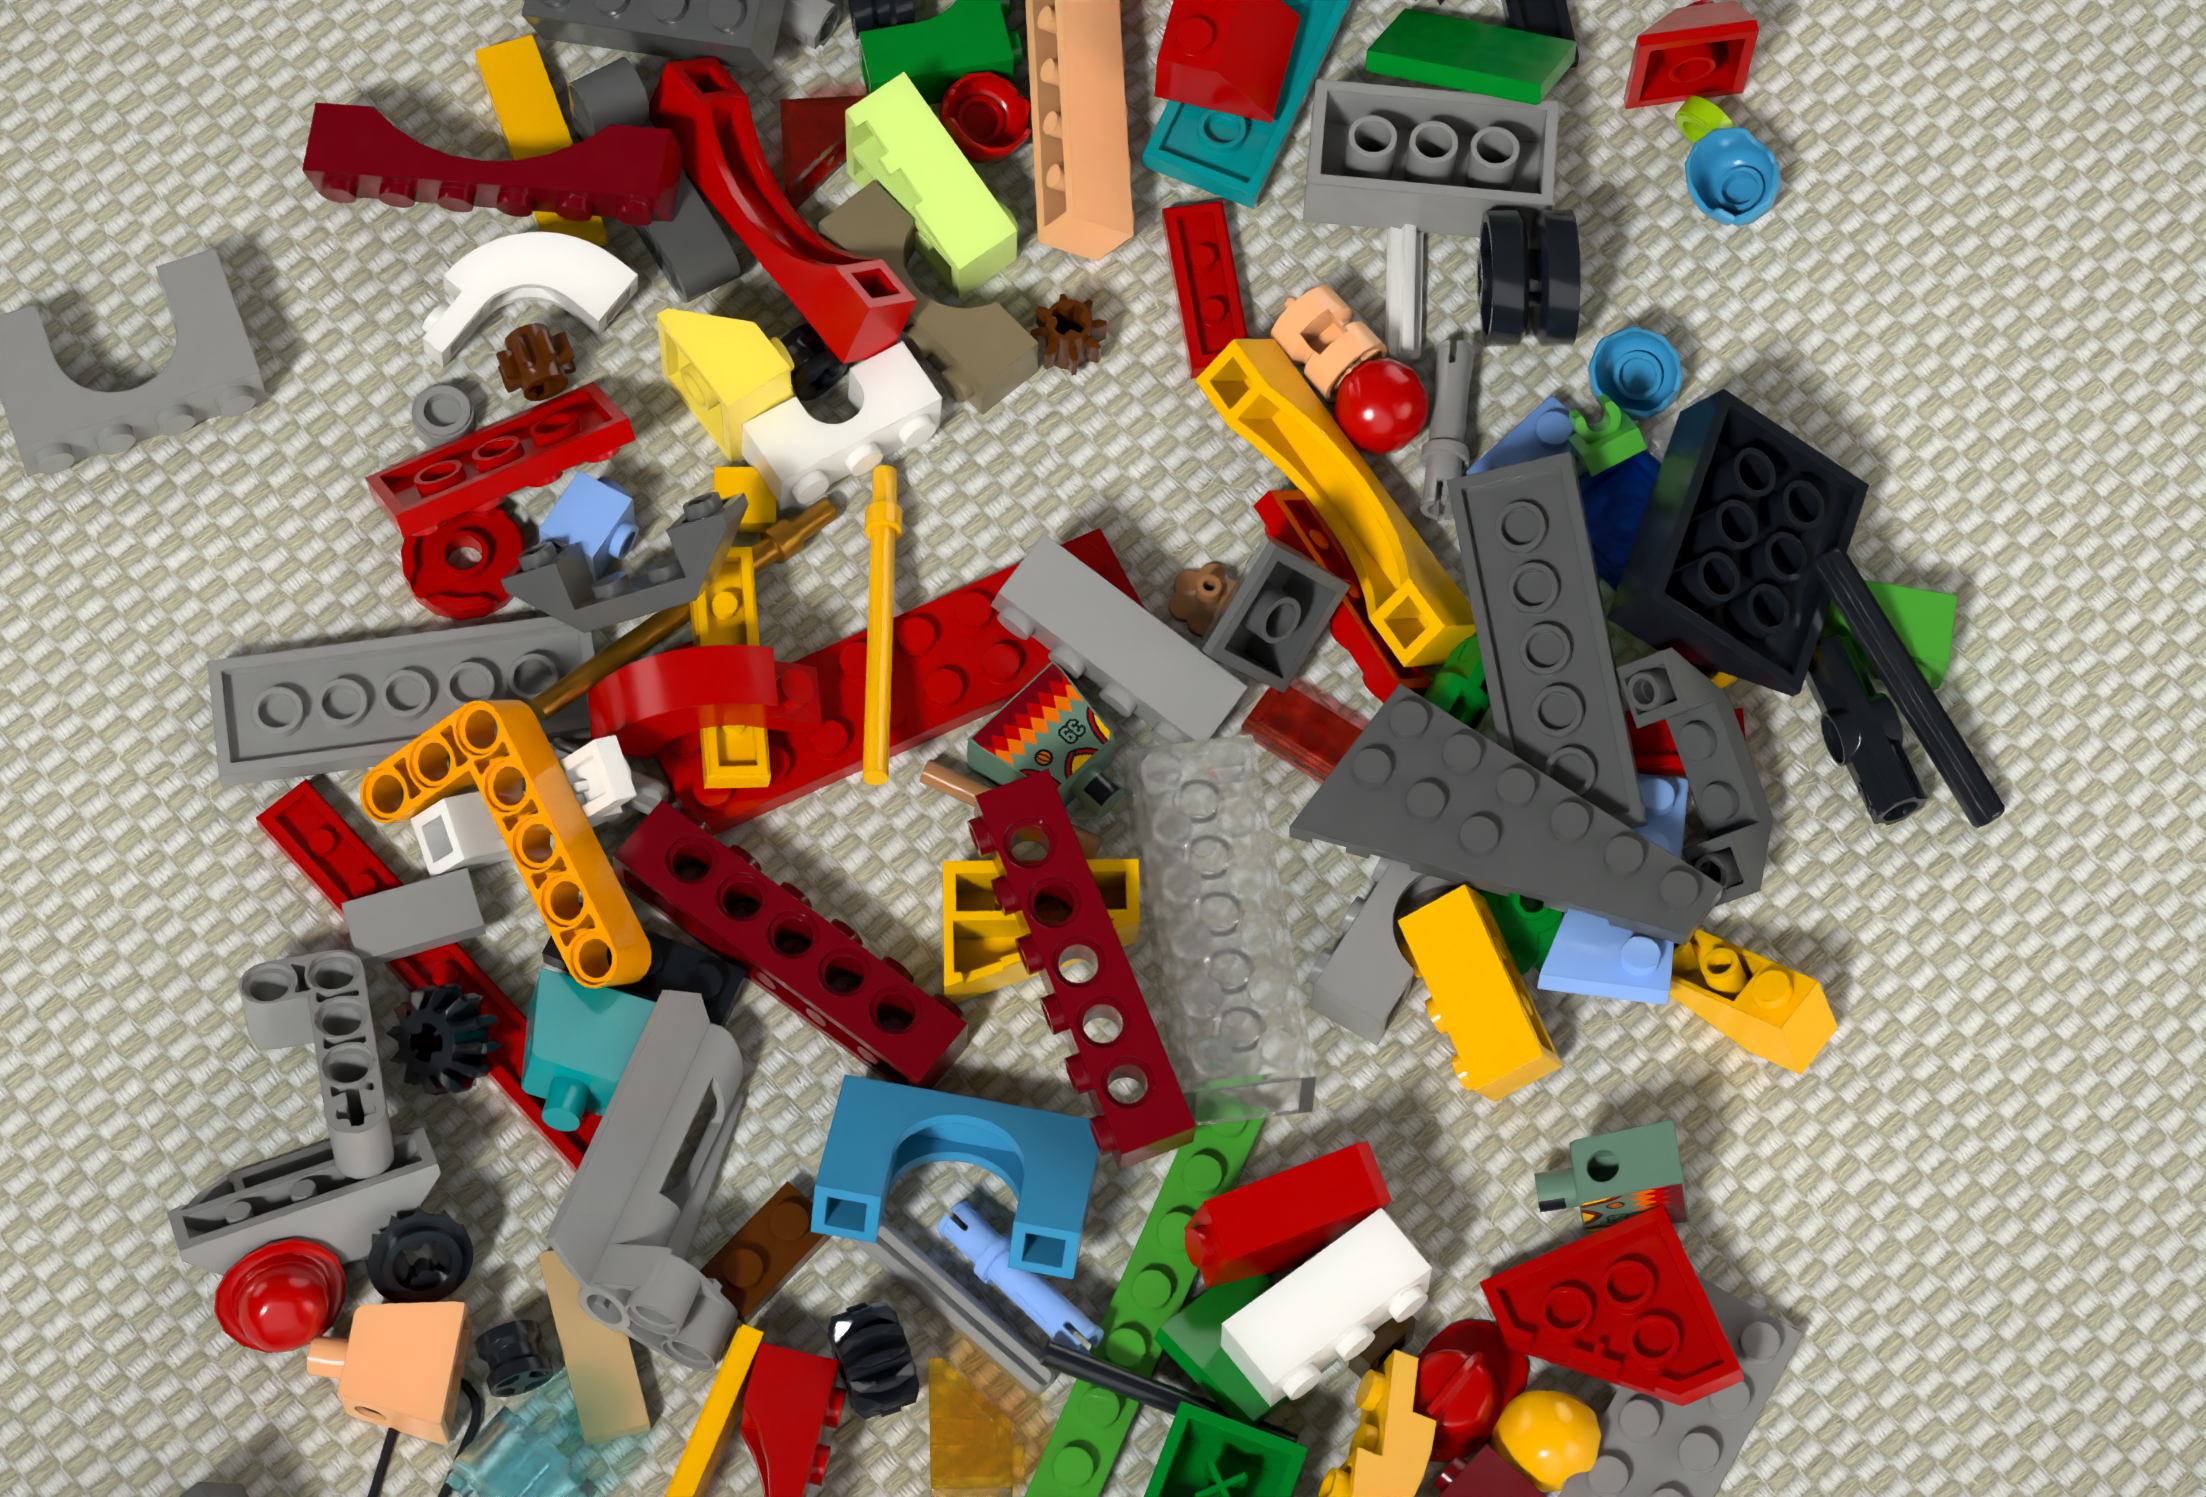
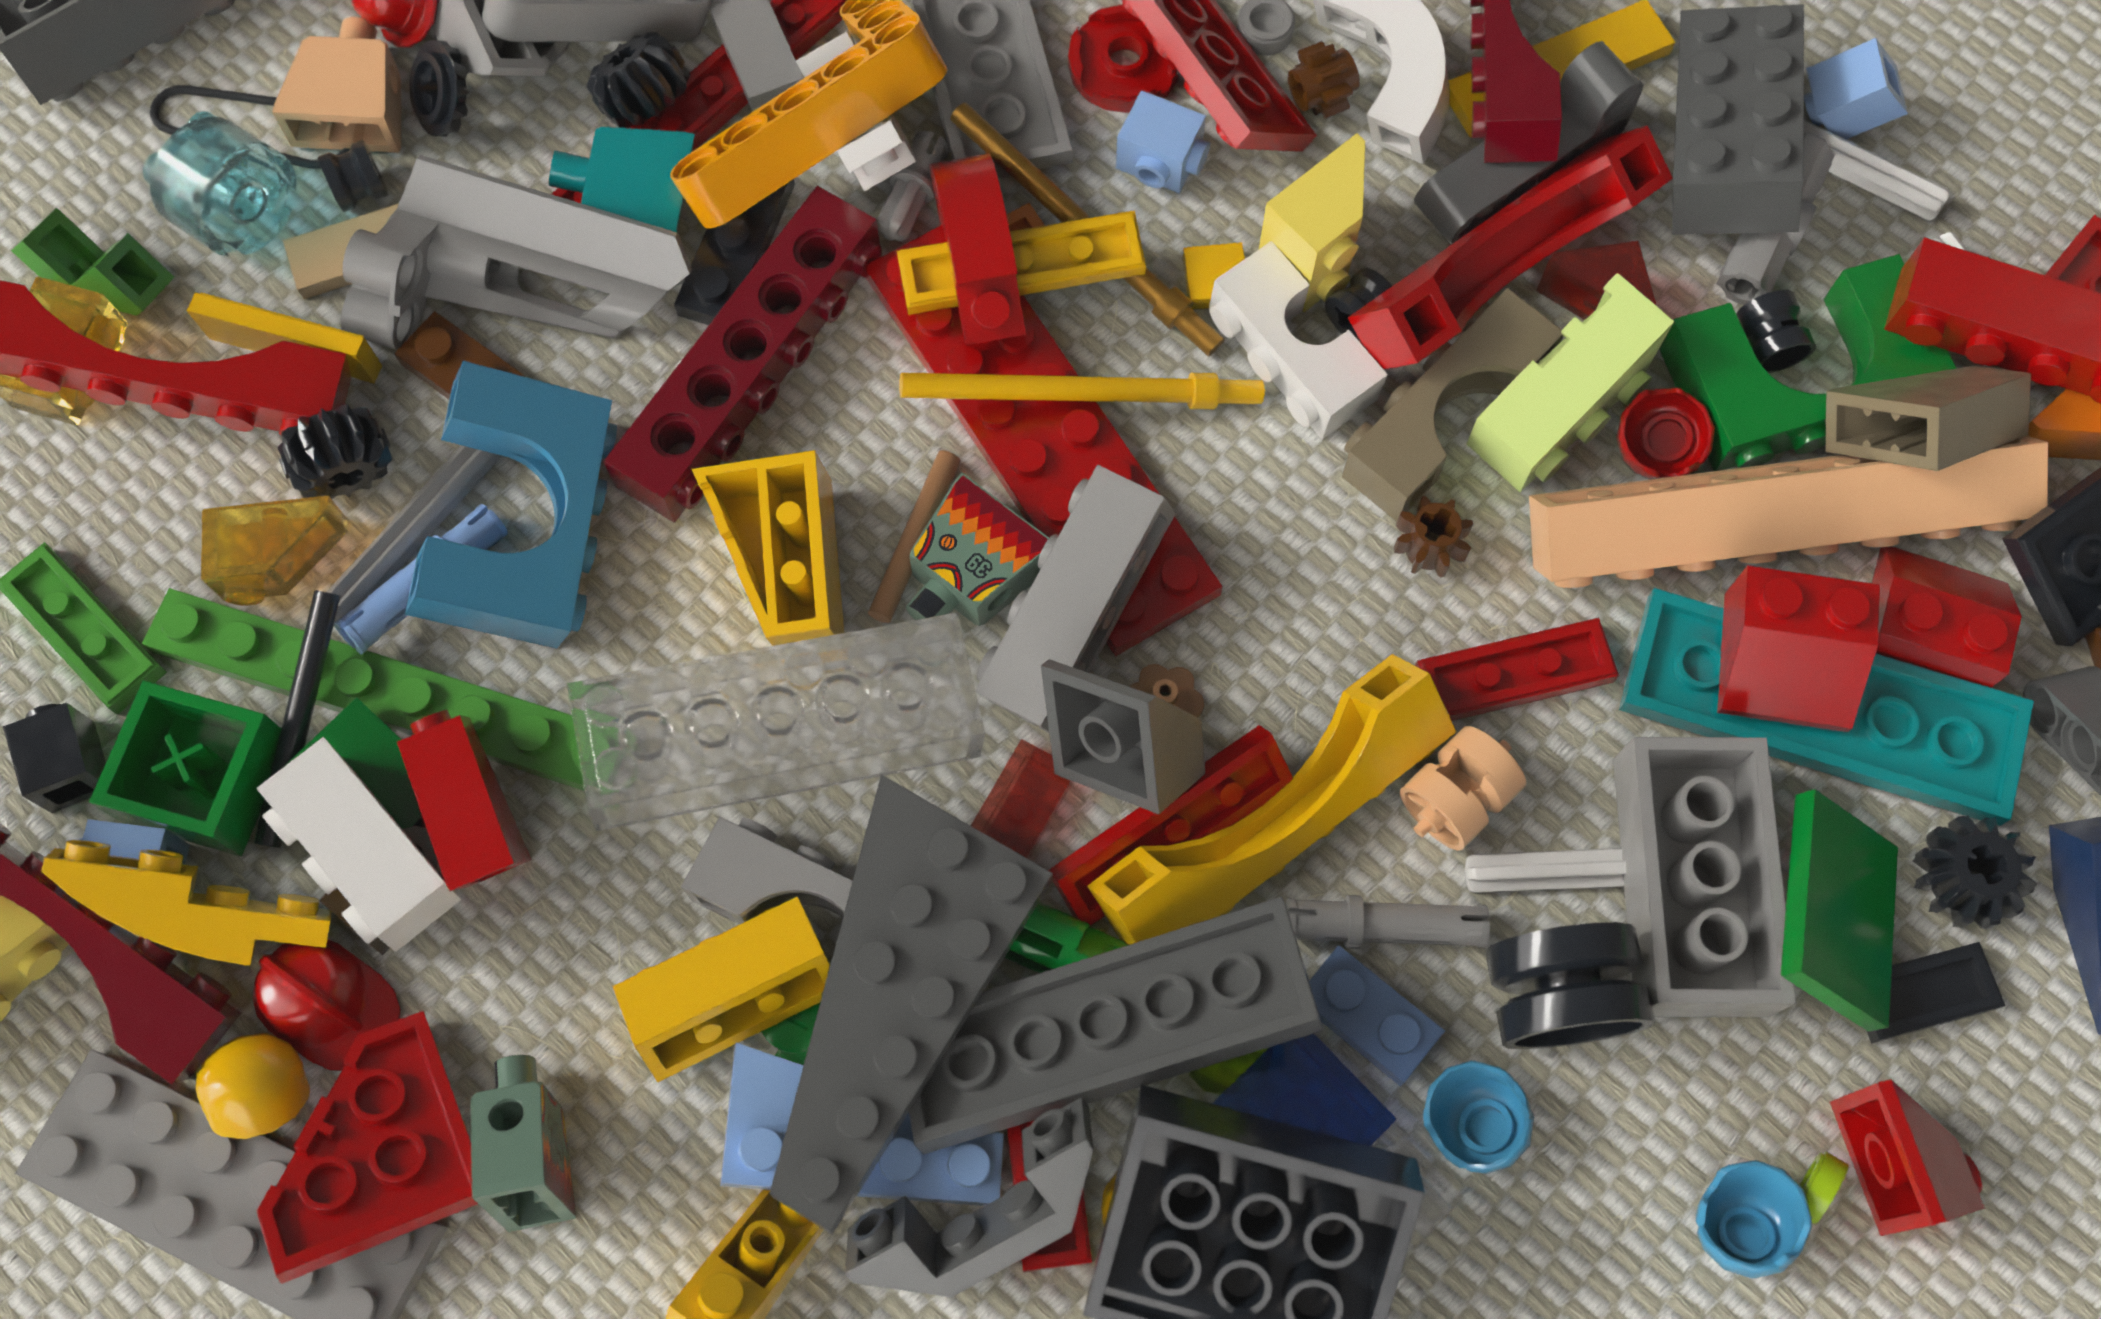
camera: 90 degrees right, 5 degrees up
(564, 587) = (1086, 180): dark grey slope -> none
(1034, 812) = (680, 611): dark red brick -> none
(1381, 406) = (1395, 846): red hair -> none
(1607, 441) = (1382, 1085): bright green tile -> none

